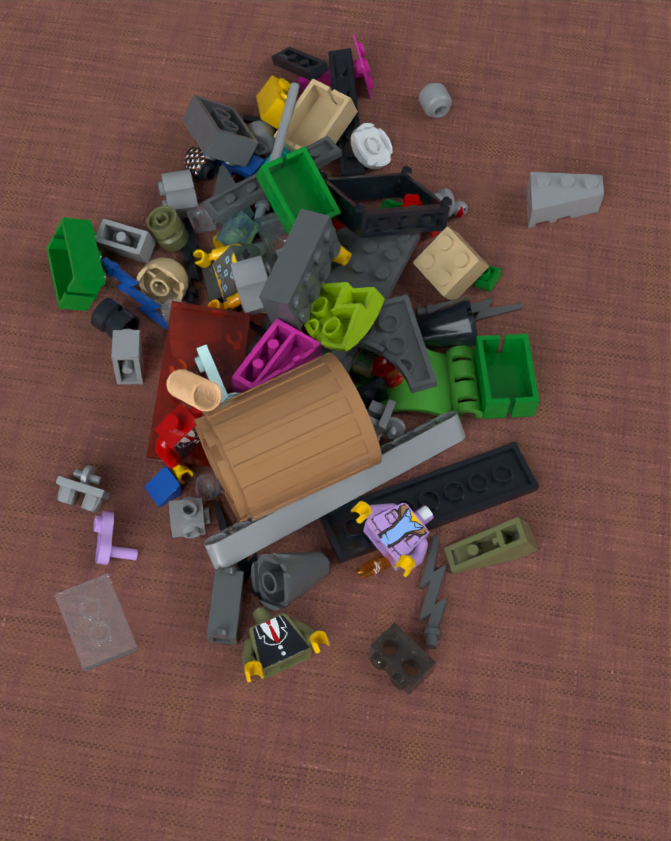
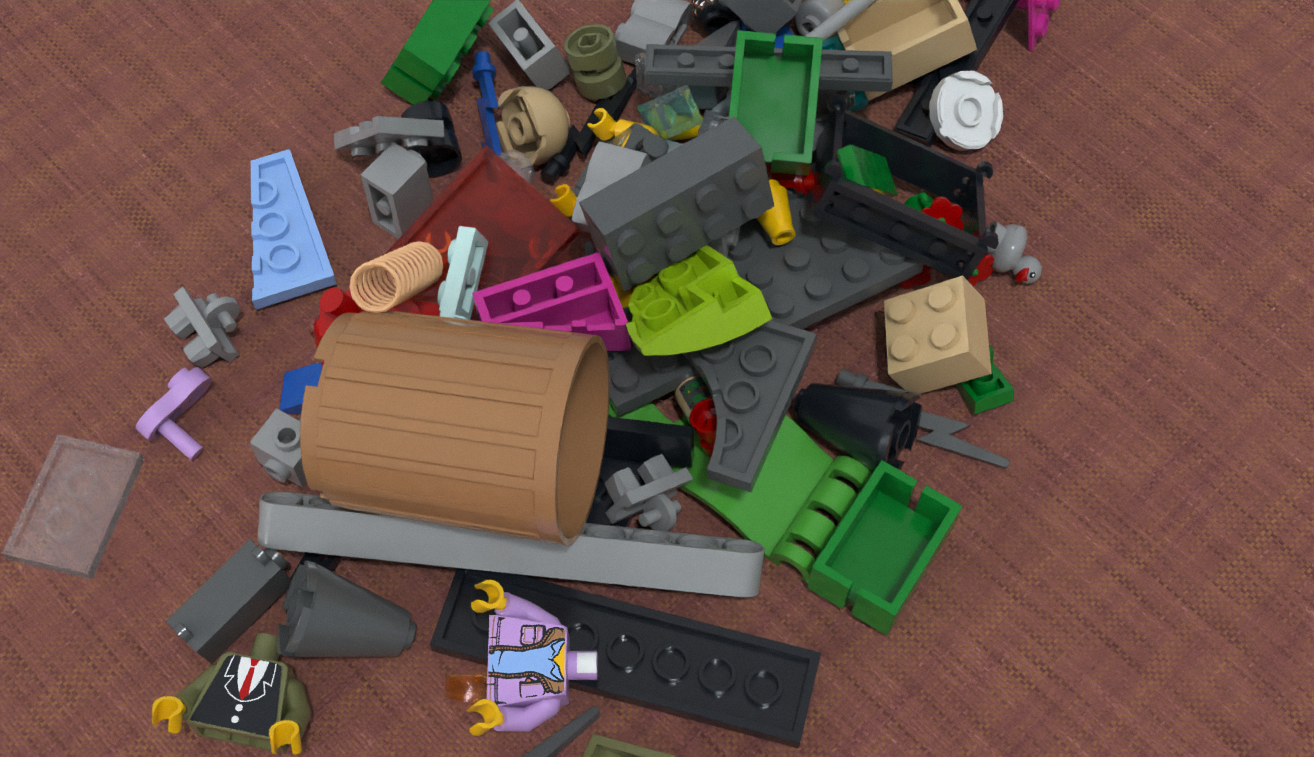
camera: 40 degrees right, 0 degrees up
(81, 419) = (286, 240): none -> light blue wing
(99, 332) = (384, 131): none -> light grey wing
(358, 198) = (867, 169): none -> green tile
(435, 100) = (1115, 100): light grey head -> none
(562, 195) = (1200, 342): light grey wedge -> none

